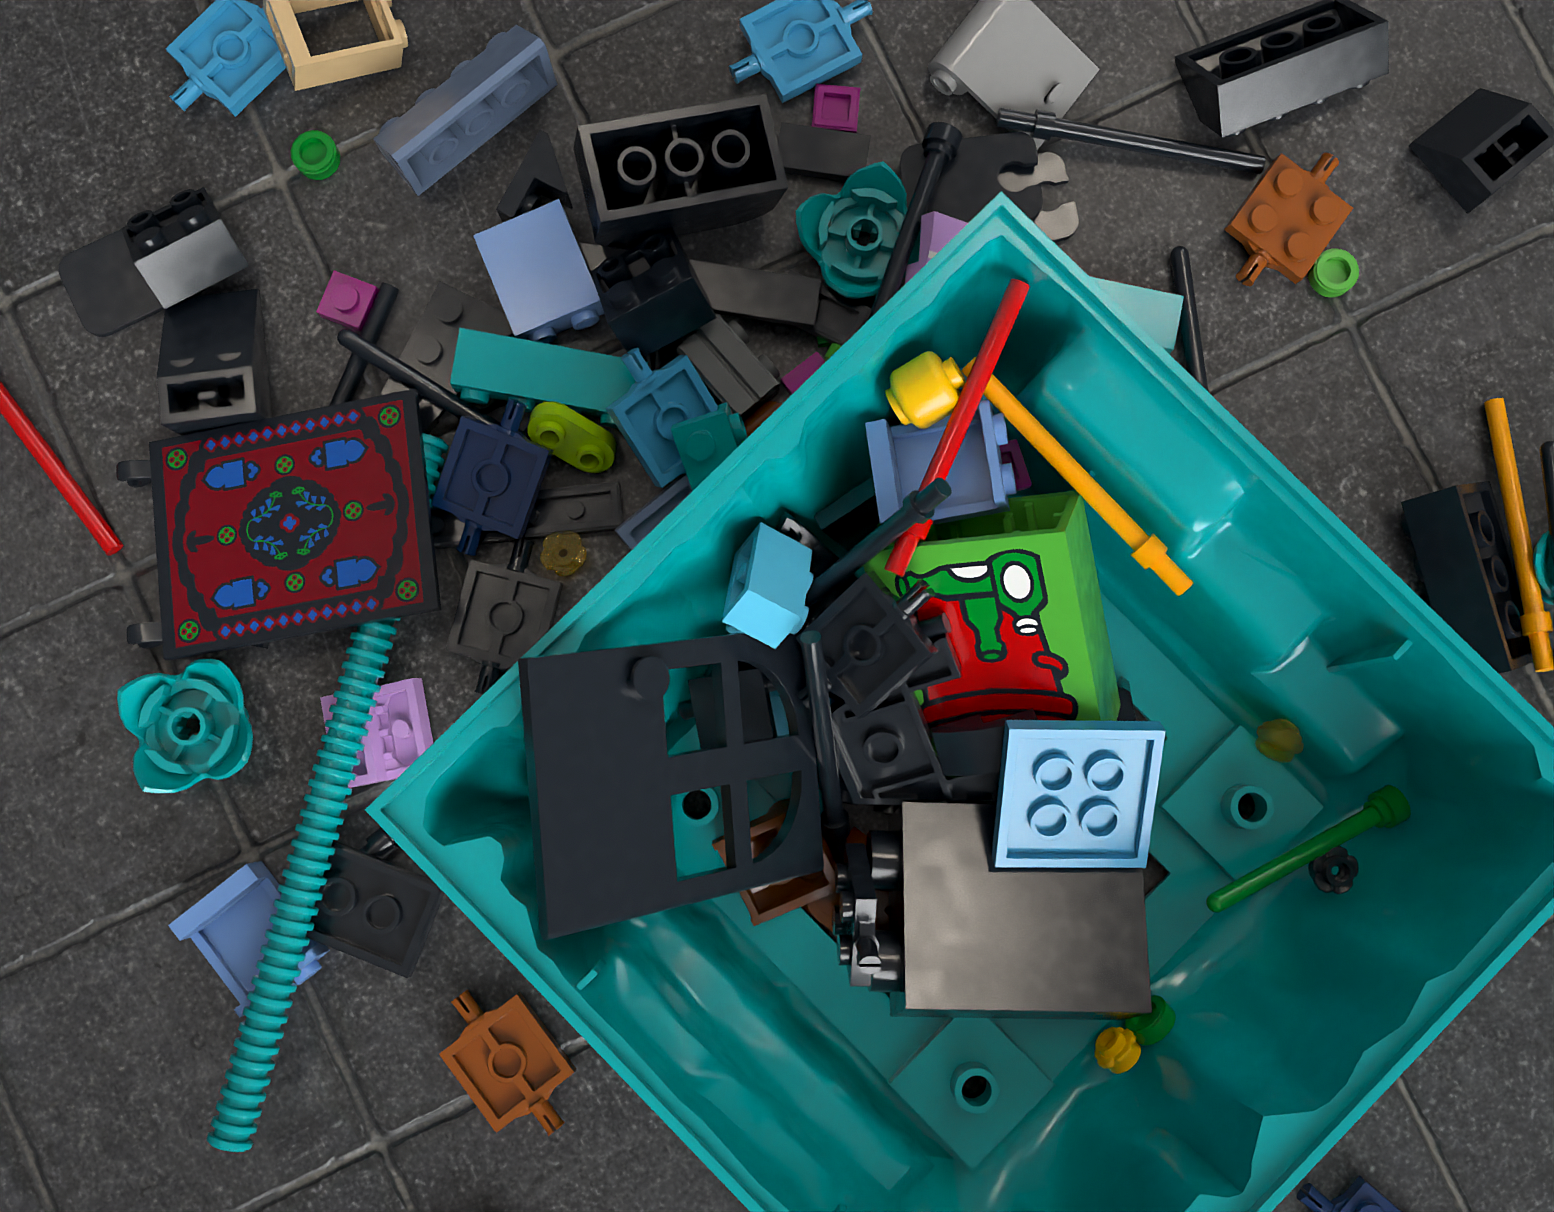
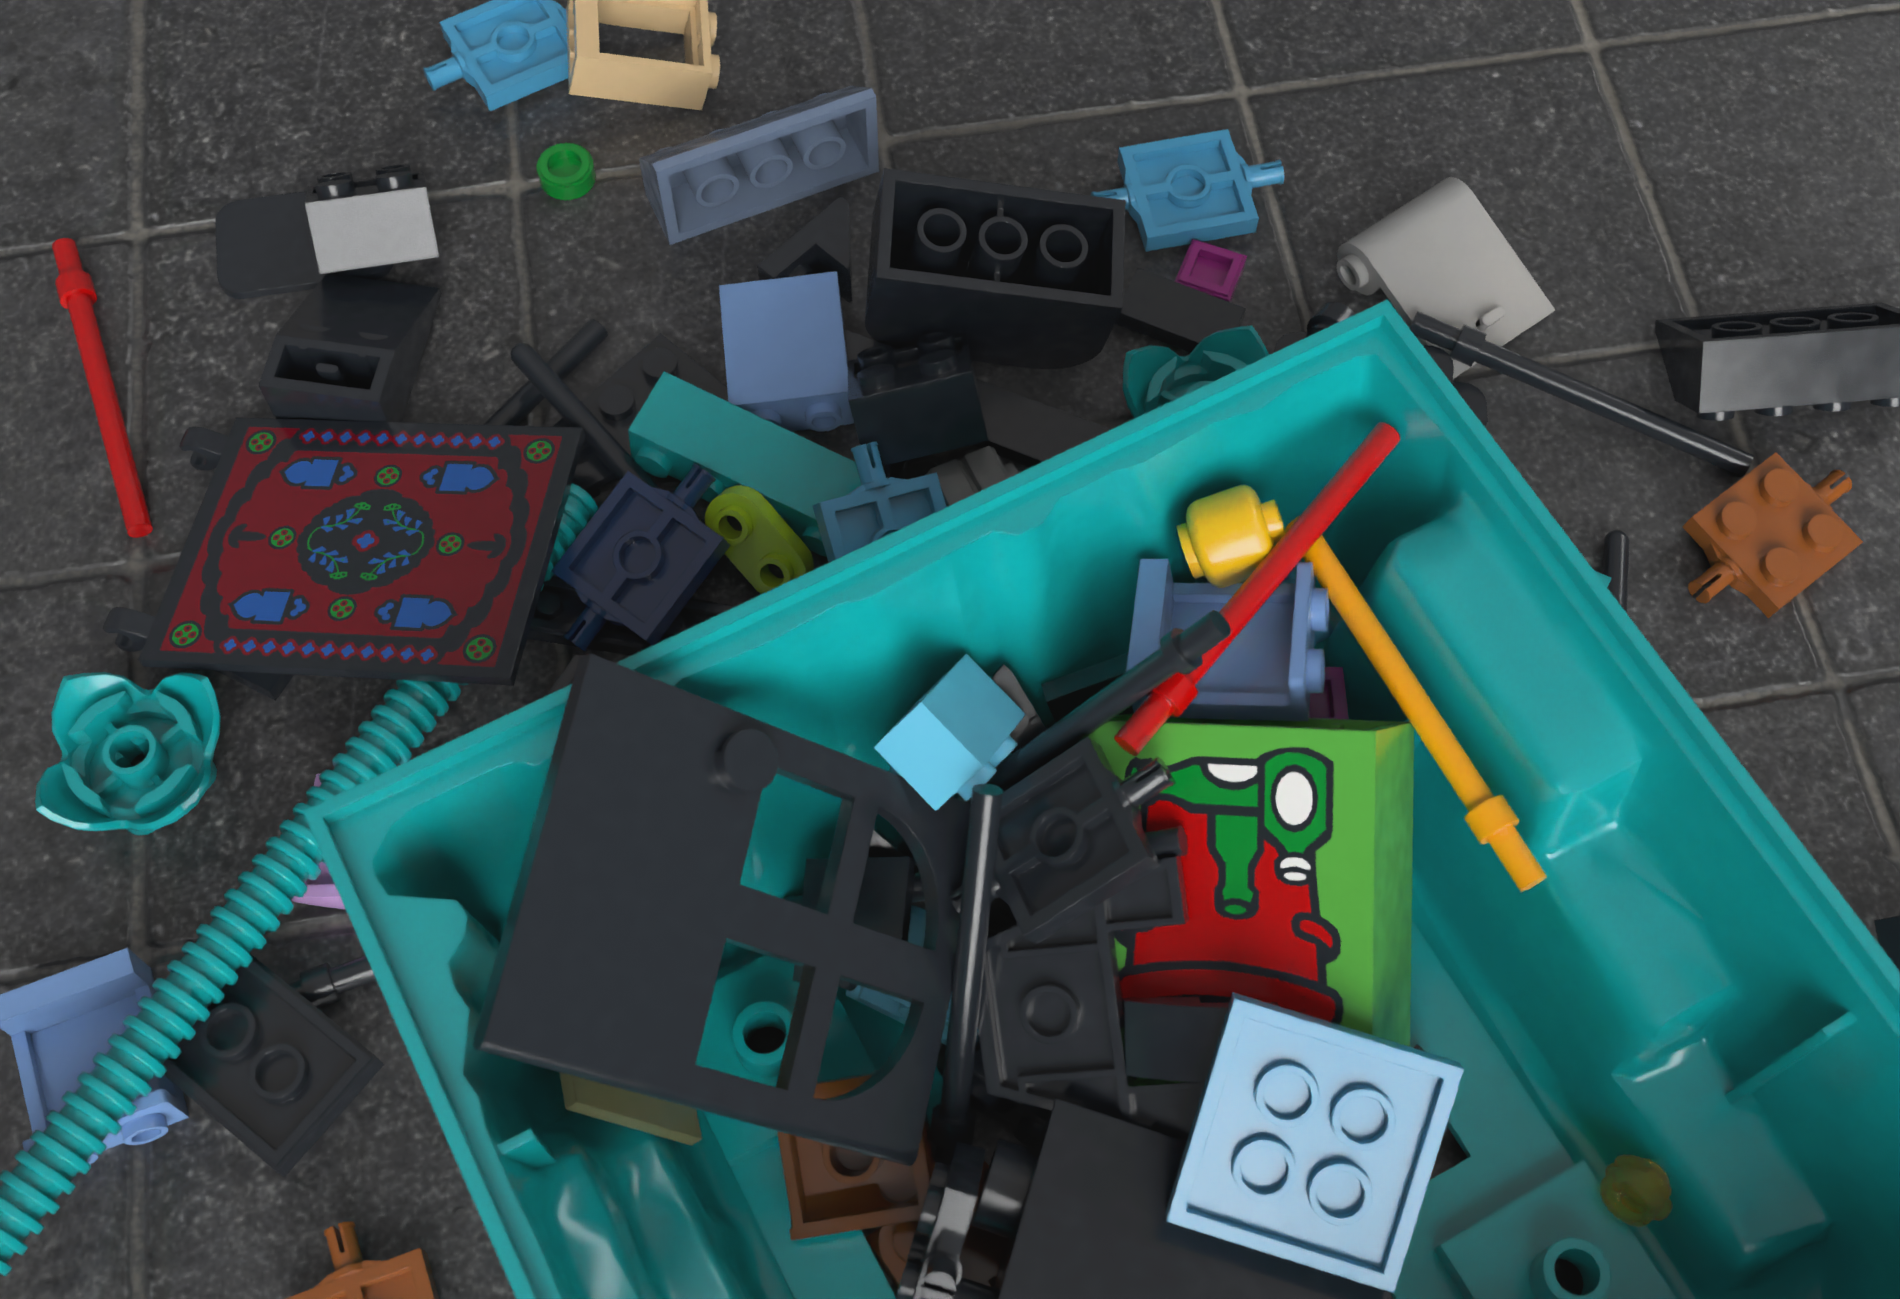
camera: 20 degrees right, 20 degrees down
(347, 301) = (541, 325): magenta plate -> none
(1333, 273) = (1823, 615): bright green tile -> none

